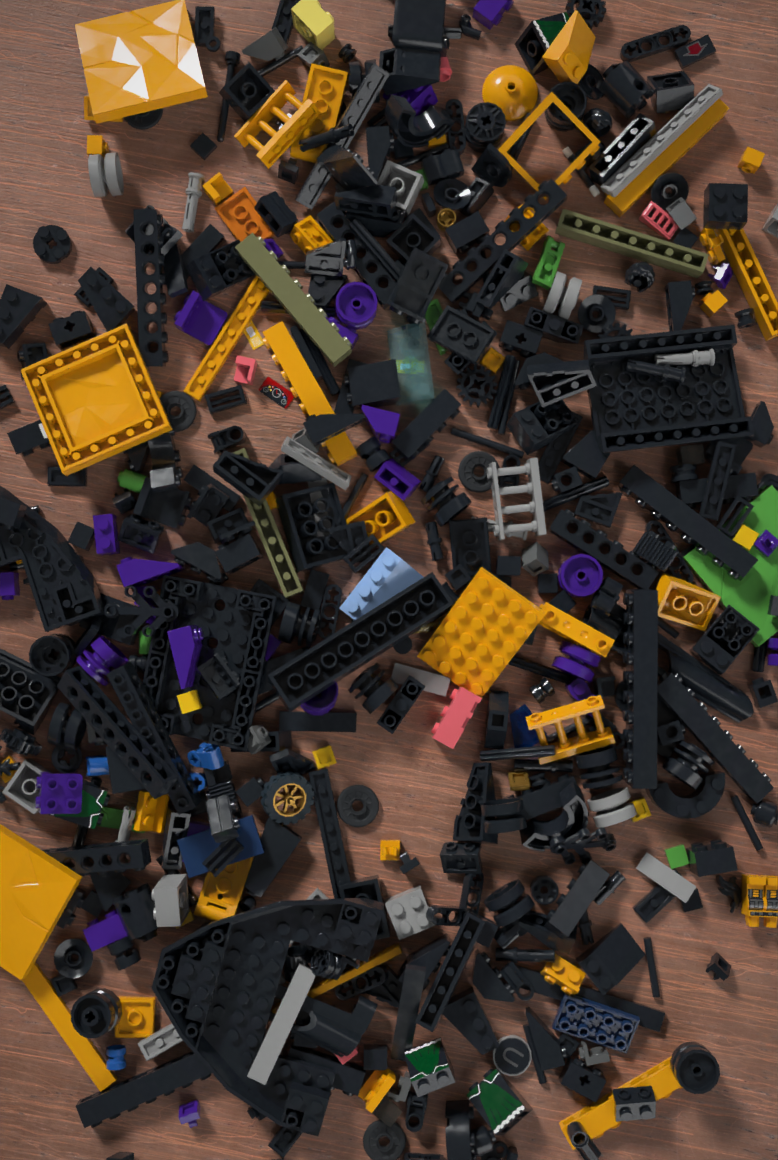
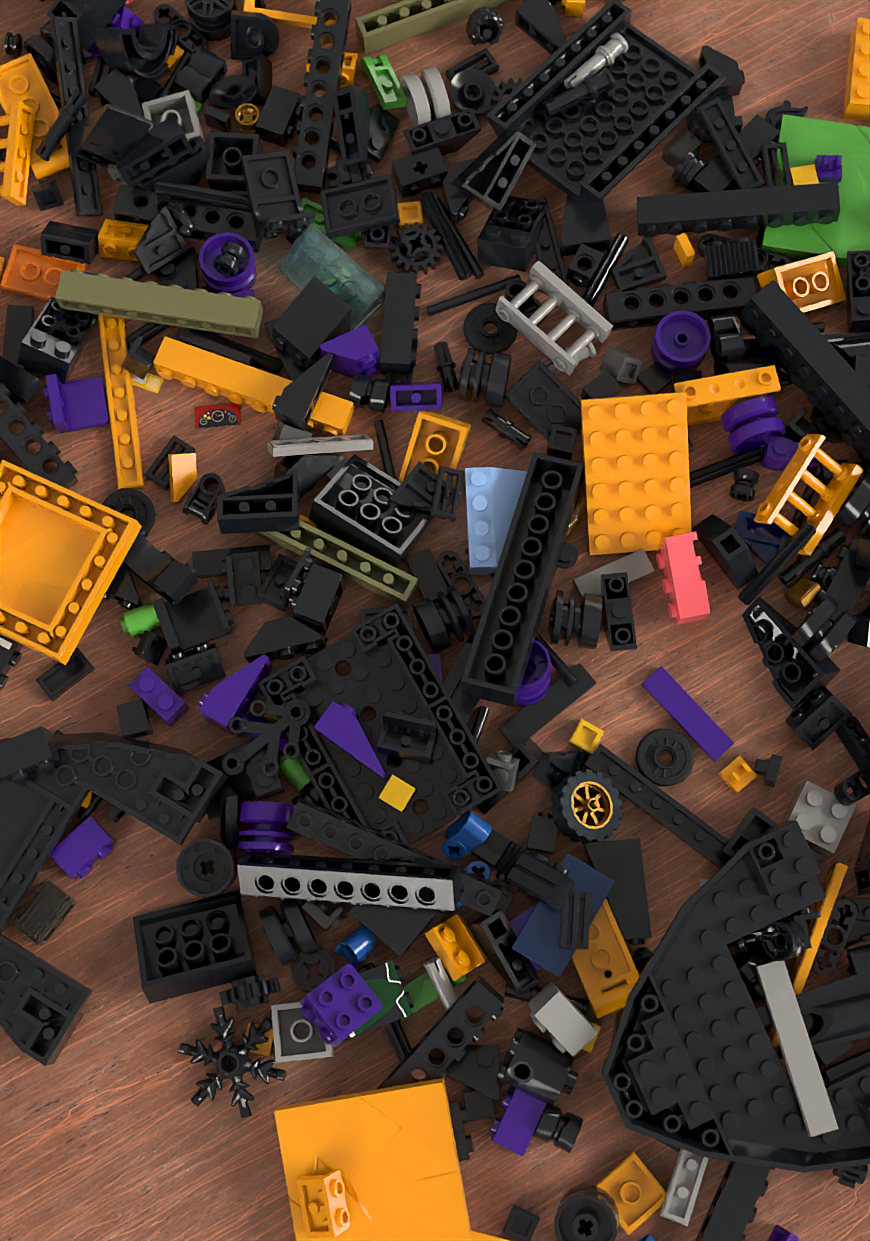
camera: 40 degrees left, 10 degrees down
(66, 965) = (514, 1199): black dish -> none
(226, 412) = (182, 474): none -> light orange tile
(245, 370) = (165, 417): coral panel -> none
(257, 322) = (138, 360): none -> black panel
(343, 700) = (559, 665): none -> black bar
(354, 307) = (230, 258): none -> black wheel
(392, 793) = (687, 714): none -> dark purple tile
(635, 520) = (684, 250): none -> light orange tile

